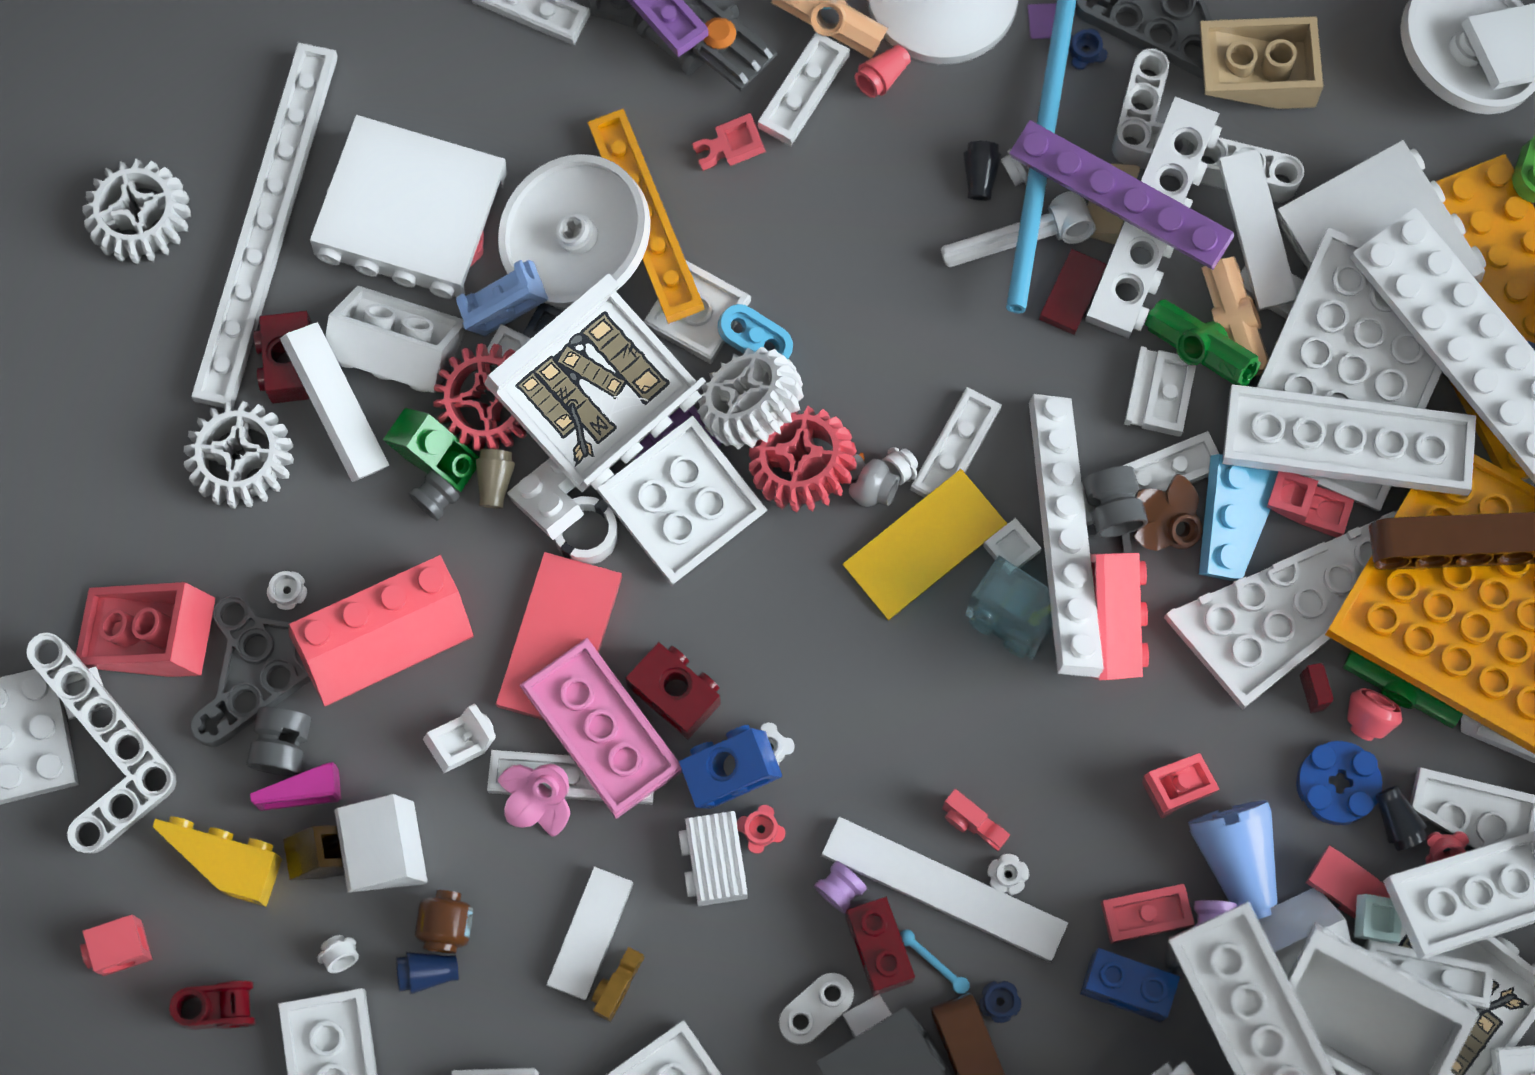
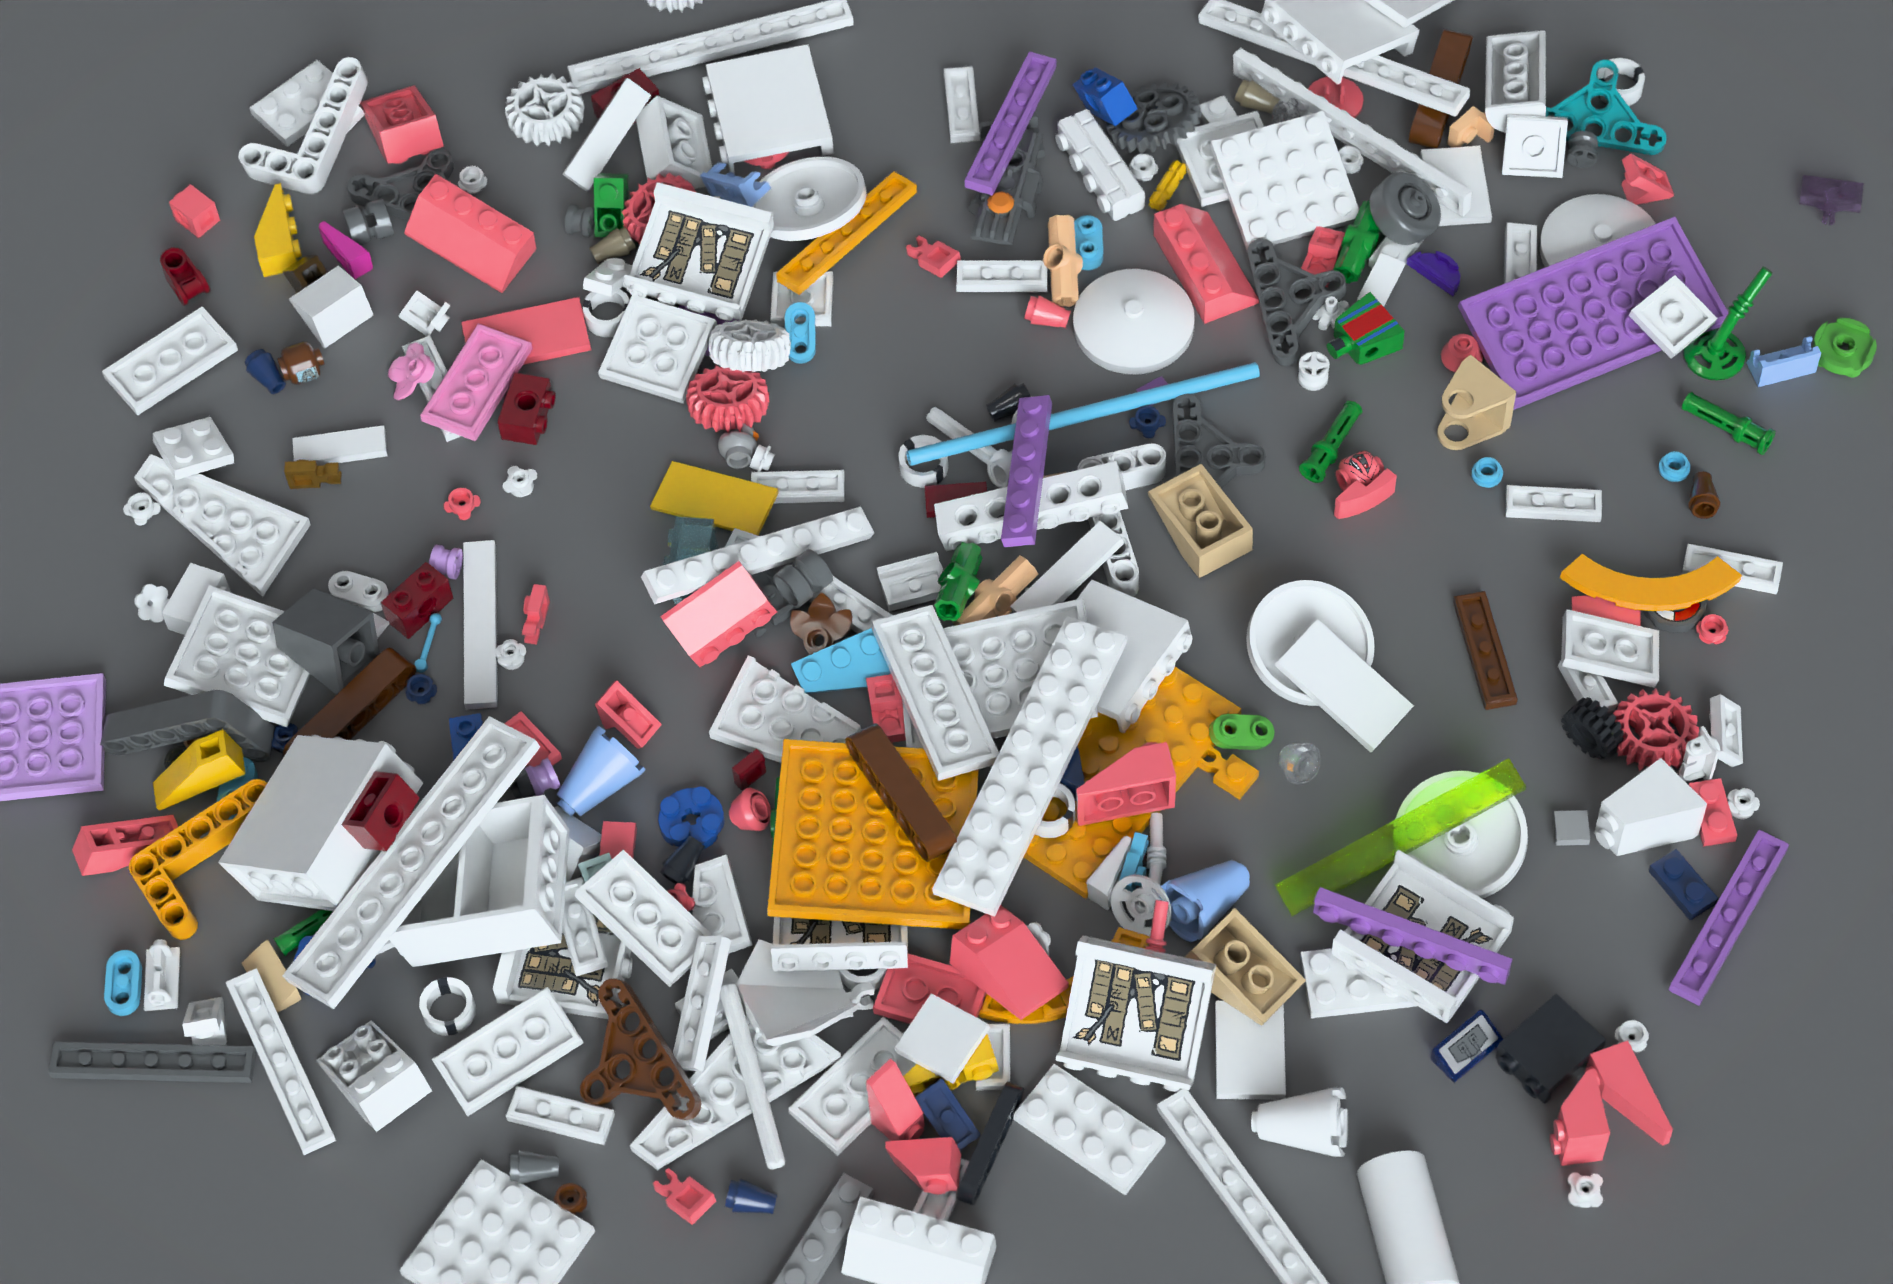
camera: 65 degrees right, 15 degrees down
(338, 953) = (251, 323): white plate -> none
(714, 858) = (425, 485): white brick -> none
(753, 767) = (488, 459): blue brick -> none
(1000, 324) = (921, 479): none -> white piece

